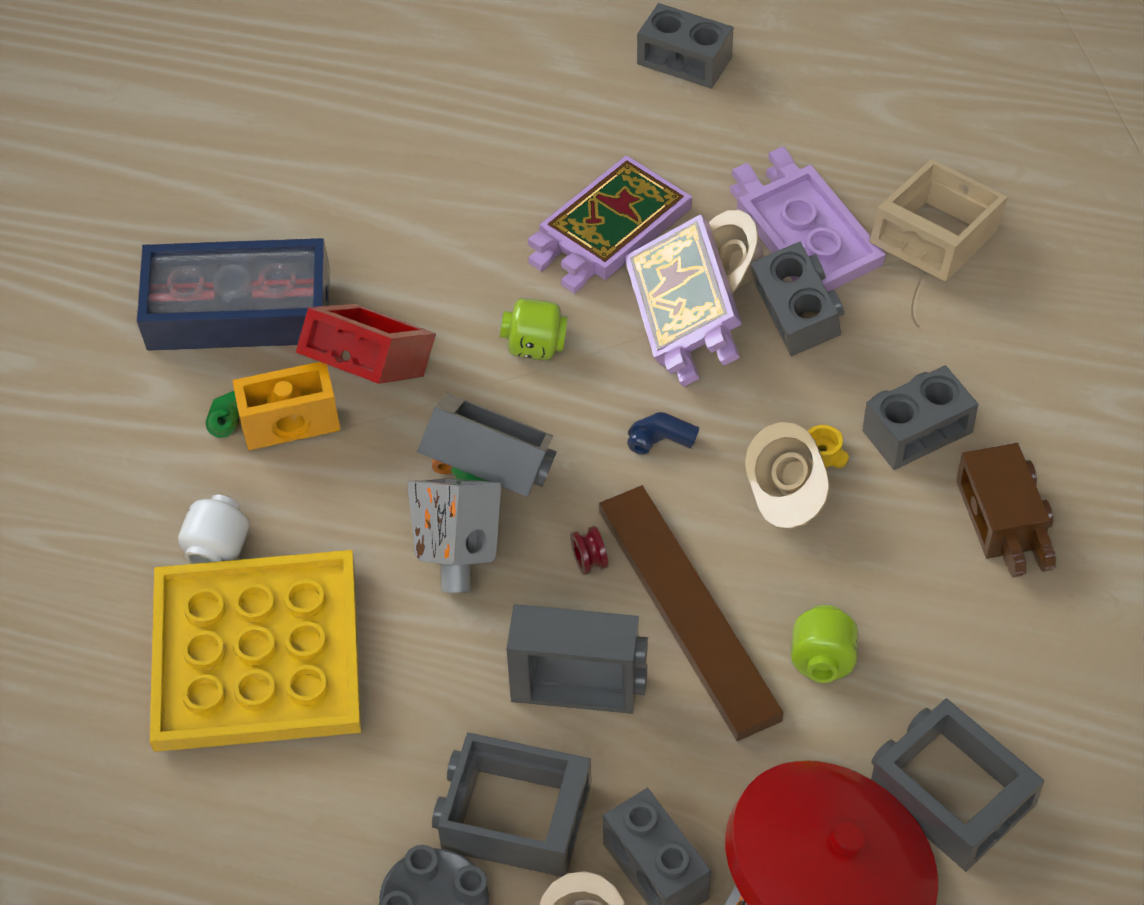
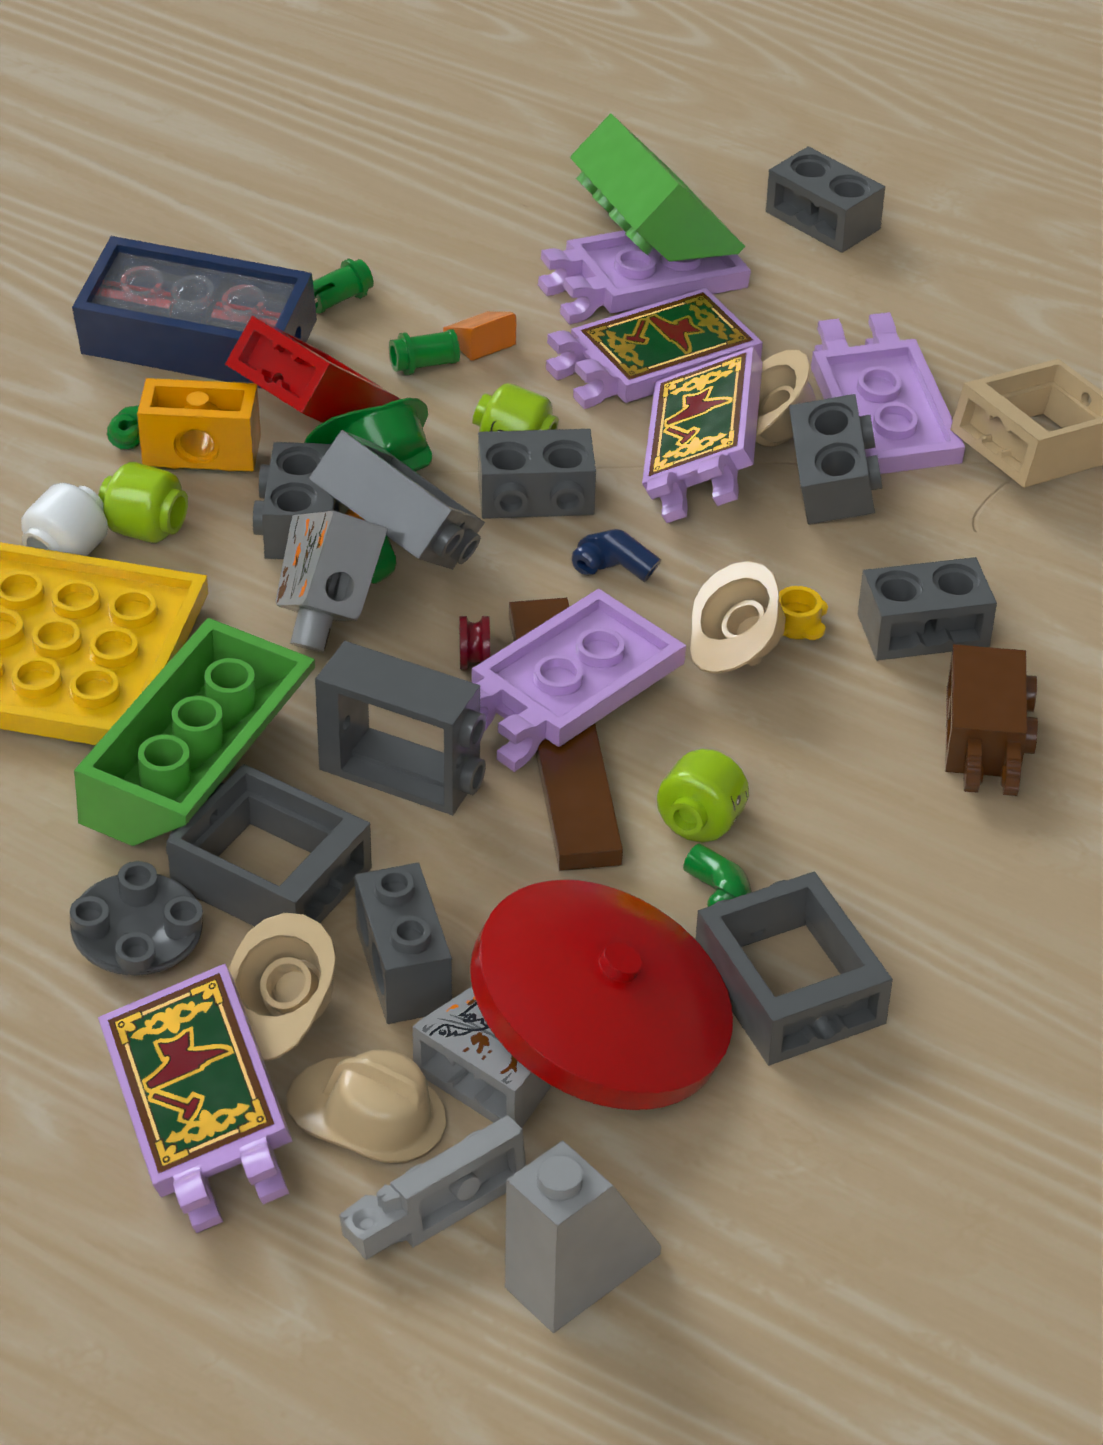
camera: 15 degrees right, 10 degrees down
(269, 491) = (143, 502): none -> lime head
(342, 222) = (337, 286): none -> green pin
(390, 439) = (288, 493): none -> dark grey brick
(412, 715) = (185, 732): none -> bright green slope
(422, 280) = (423, 351): none -> green pin
(431, 381) = (392, 426): none -> green piece
(467, 244) = (485, 333): none -> orange slope
(555, 85) = (649, 197): none -> bright green slope
(568, 147) = (622, 277): none -> lavender tile
(570, 373) = (536, 473): none -> dark grey brick
(679, 560) = (571, 674): none -> lavender tile
(871, 713) = (716, 872): none -> green arm

